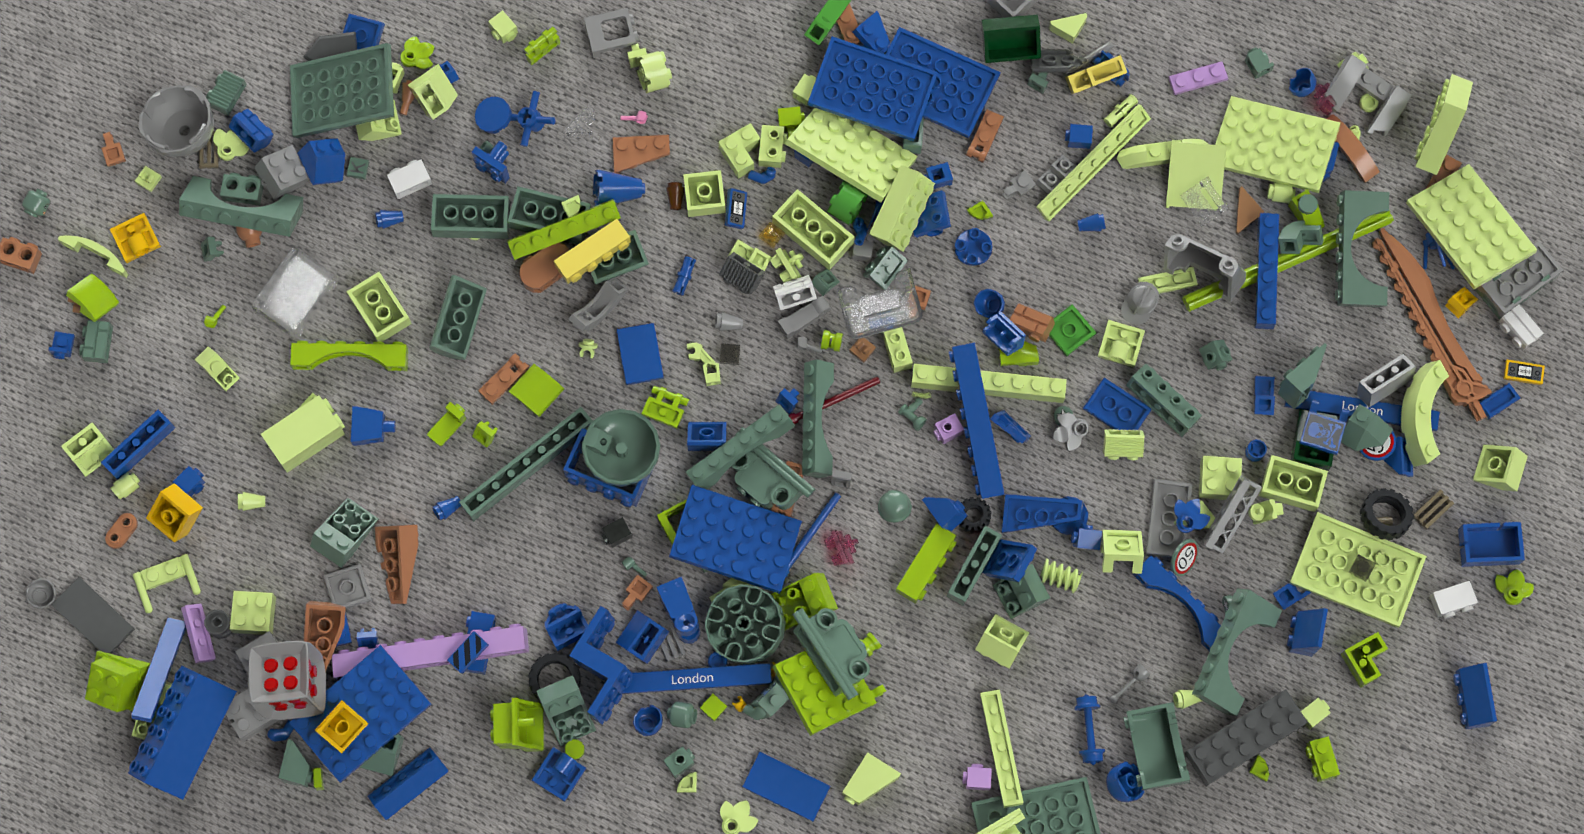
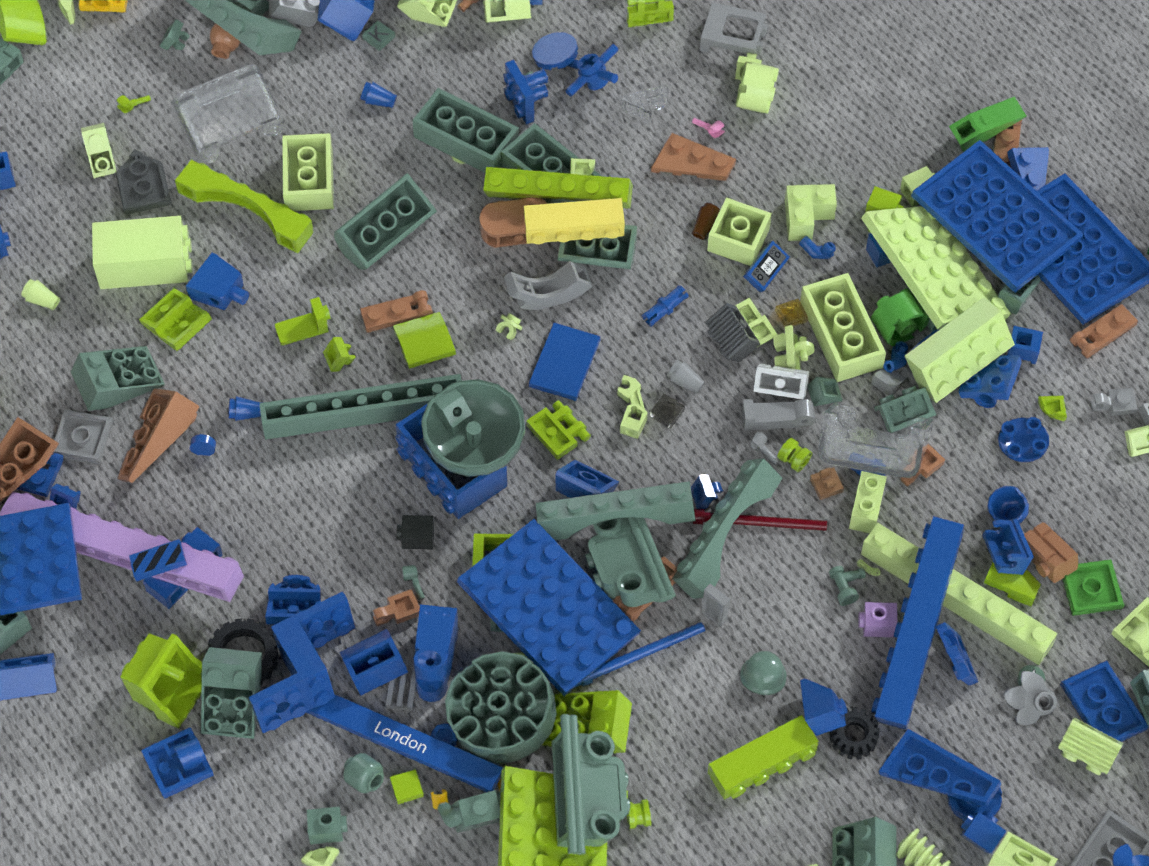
camera: 30 degrees right, 15 degrees down
(264, 377) = (142, 184): none -> dark grey tile
(355, 467) = (175, 319): none -> lime slope
(409, 178) = (425, 68): white brick -> none
(435, 549) = (202, 445): none -> blue tile
(575, 749) = (214, 745): lime tile -> none
(616, 186) = (647, 180): blue cone -> none
(643, 725) = (310, 756): blue hair -> none
(771, 146) = (845, 223): yellowish green brick -> none
(844, 555) = (675, 686): clear pink hips -> none
(974, 565) = (821, 789): sand green brick -> none
(1009, 560) = (869, 803): blue plate -> none

